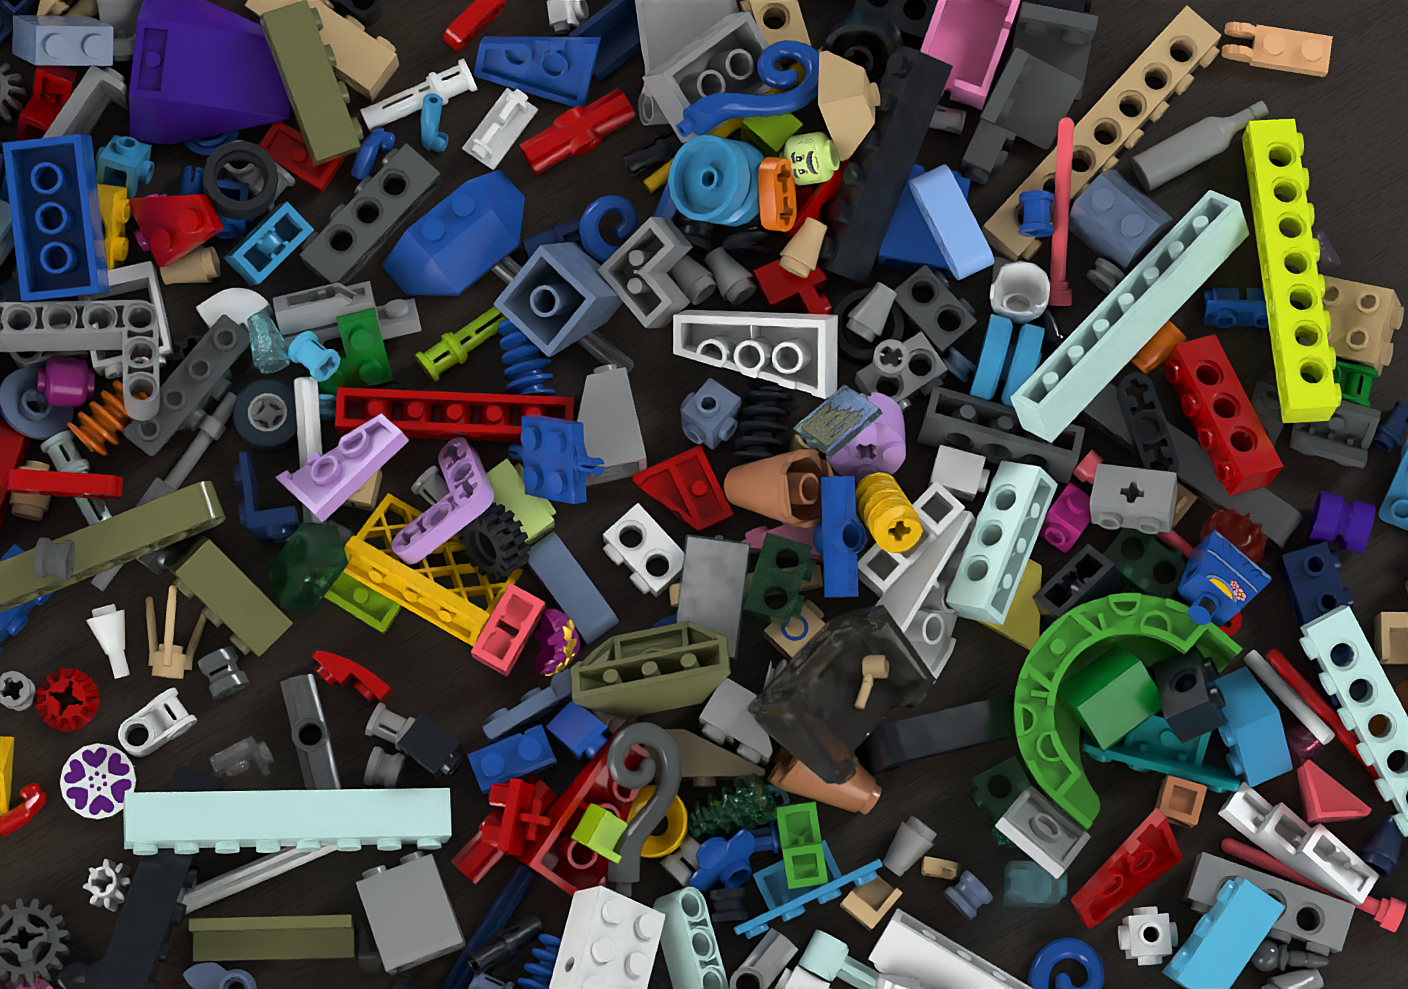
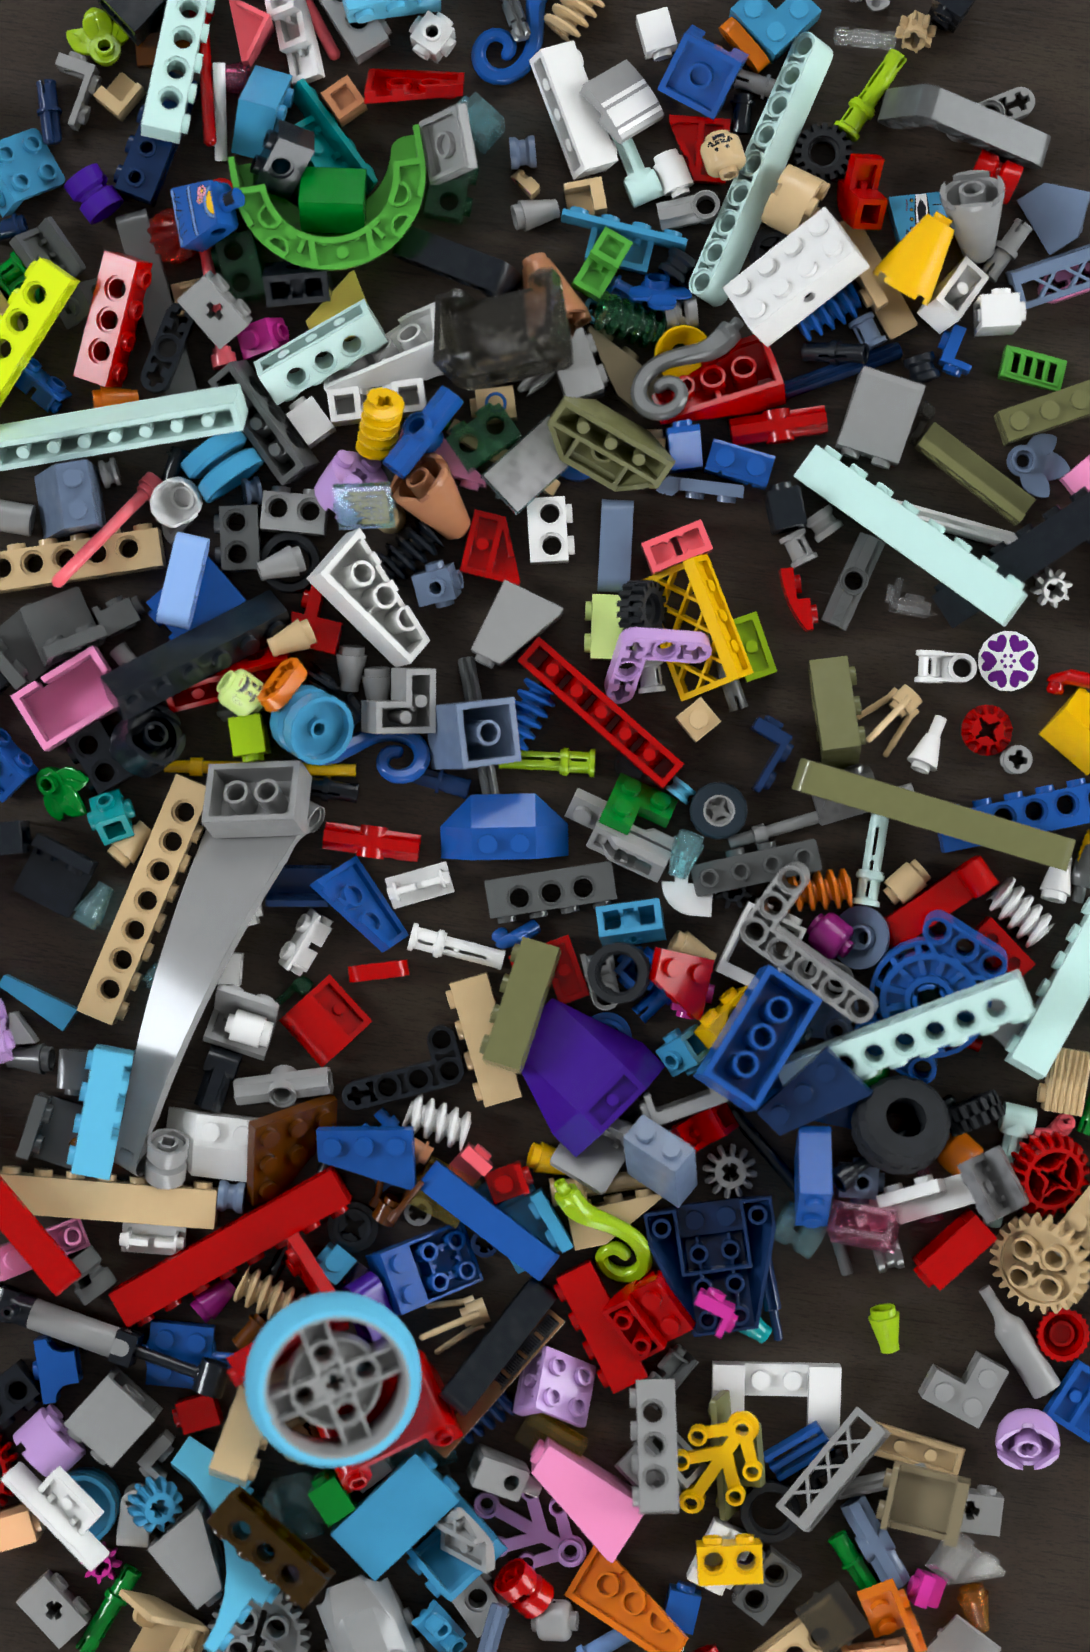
camera: 135 degrees left, 10 degrees up
(54, 559) = (931, 810): dark grey wheel -> none
(64, 484) = (884, 864): red beam -> none
(223, 672) = (877, 659): dark grey wheel -> none
(307, 566) = (772, 687): clear green brick -> none
(308, 427) = (712, 762): white axle -> none
(314, 356) = (661, 820): medium azure bush -> none
(337, 474) = (703, 728): lavender wing -> none
(430, 119) = (461, 925): dark azure arm -> none
(519, 819) = (764, 418): red hips -> none
(554, 459) = (564, 624): blue plate -> none
(558, 642) = (652, 514): magenta hair -> none
(600, 831) = (723, 368): lime panel -> none
(719, 107) = (276, 770): blue plant -> none
(846, 102) = (188, 707): tan slope -> none
(872, 667) = (469, 334): tan hand -> none
(892, 346) = (287, 530): light grey bush -> none
(1036, 213) = (124, 542): blue bush -> none

